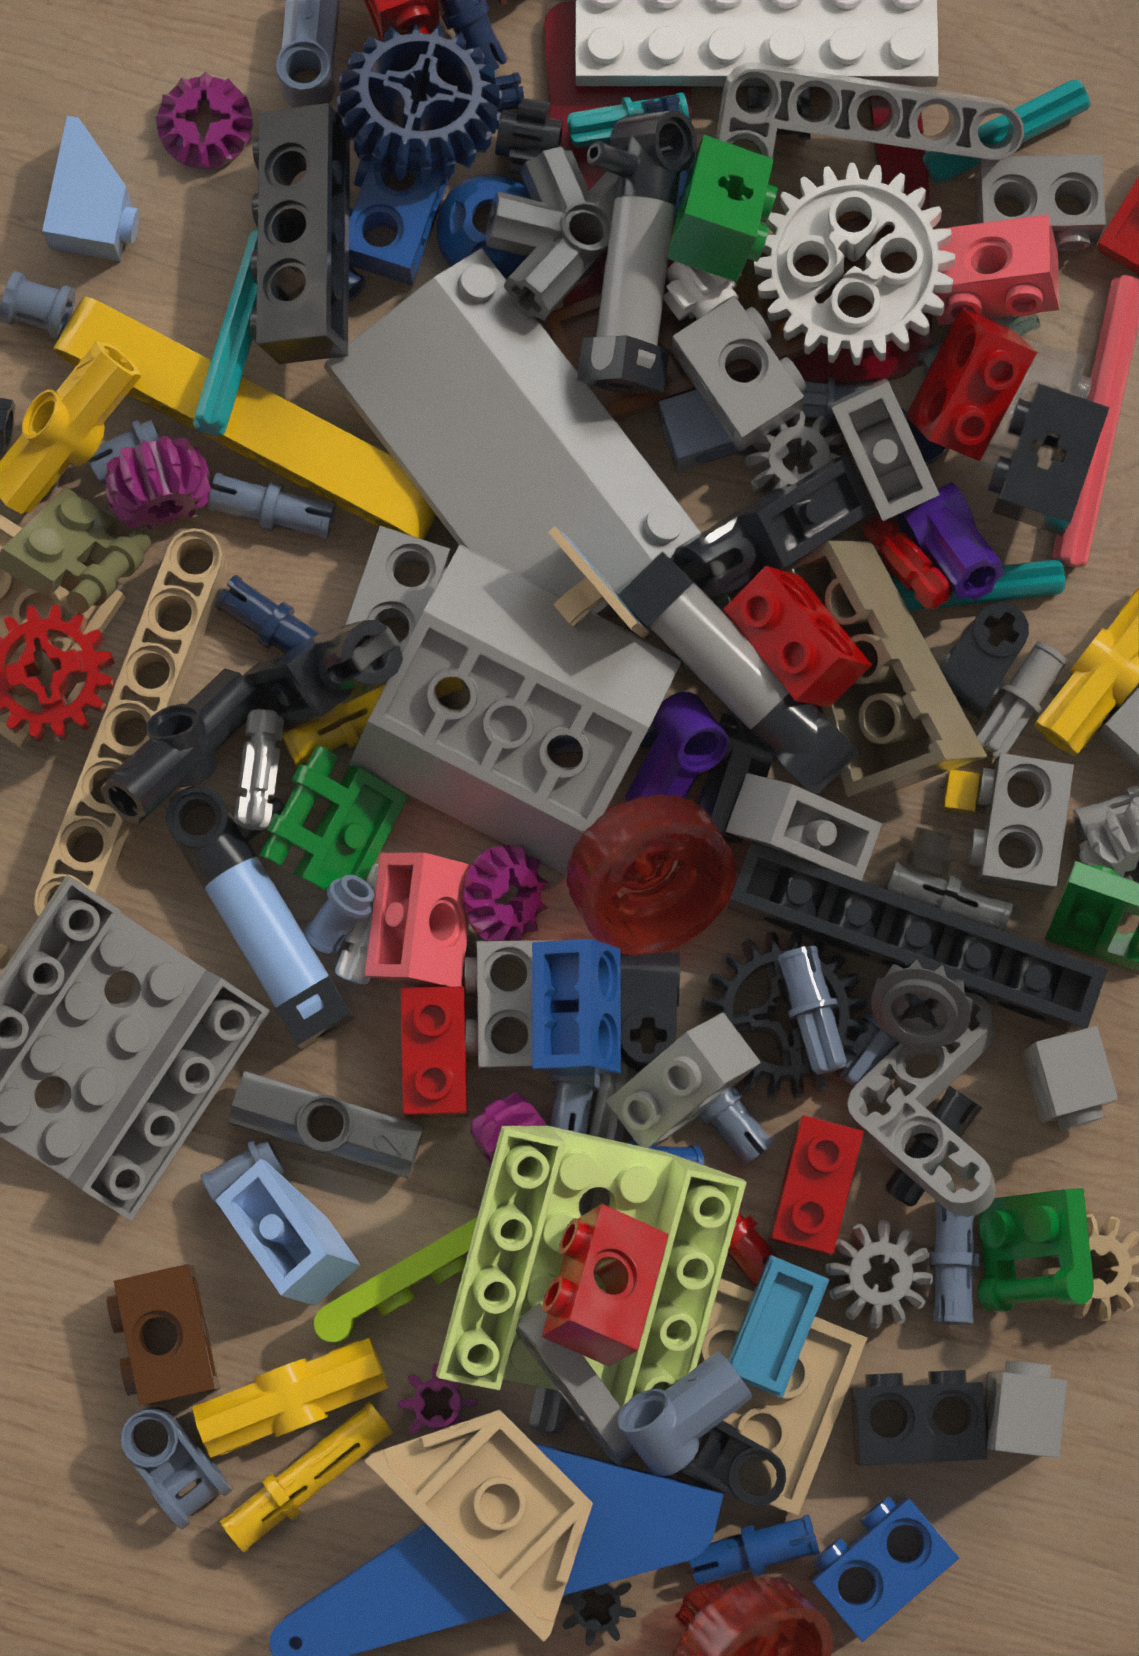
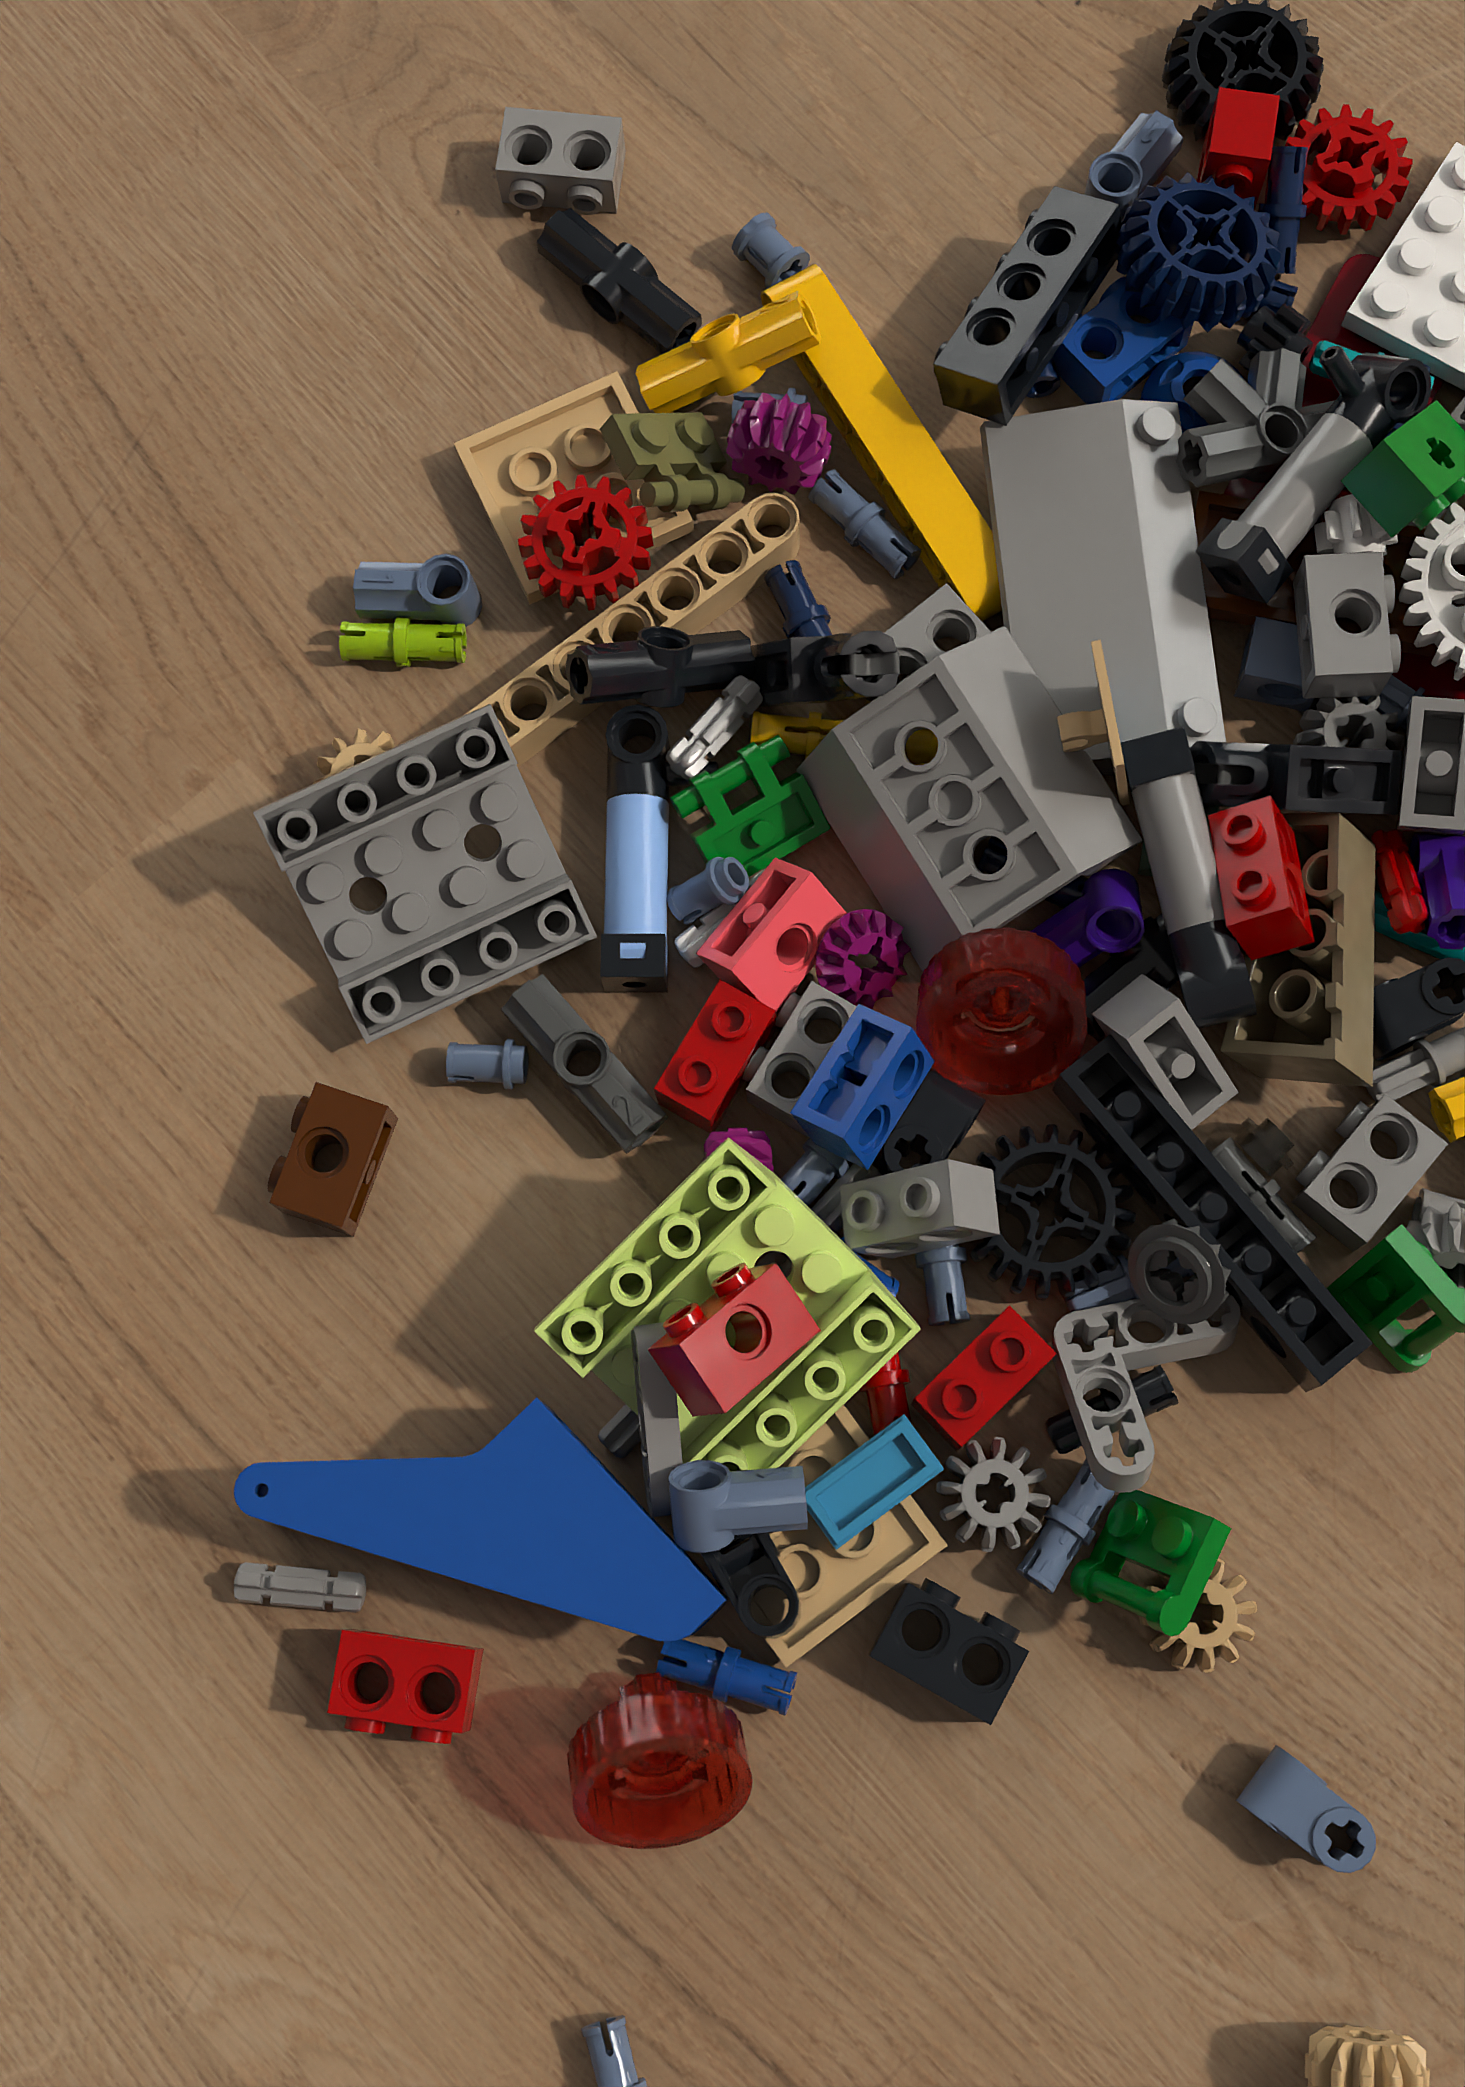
camera: 40 degrees right, 5 degrees down
(88, 200) = (864, 192): light blue slope -> none
(174, 1467) = (267, 1277): sand blue piece -> none
(224, 139) = (1011, 207): magenta gear -> none
(230, 351) = (897, 376): teal axle -> none
(287, 1235) = (489, 1136): light blue slope -> none
(290, 1397) = (405, 1279): yellow piece -> none
(305, 1477) = (374, 1358): yellow pin -> none
(391, 1287) = (544, 1236): lime plate -> none
(419, 1402) = (513, 1355): magenta gear -> none
(495, 1508) = (510, 1480): tan wing -> none
(592, 1622) = (544, 1648): black gear -> none
(813, 1008) = (1076, 1215): sand blue axle -> none
(892, 1580) = (837, 1783): blue brick -> none
(961, 792) = (1326, 1113): yellow piece -> none
(1025, 1409) = (1054, 1701): light grey brick -> none
(1070, 1078) = (1278, 1422): light grey brick -> none

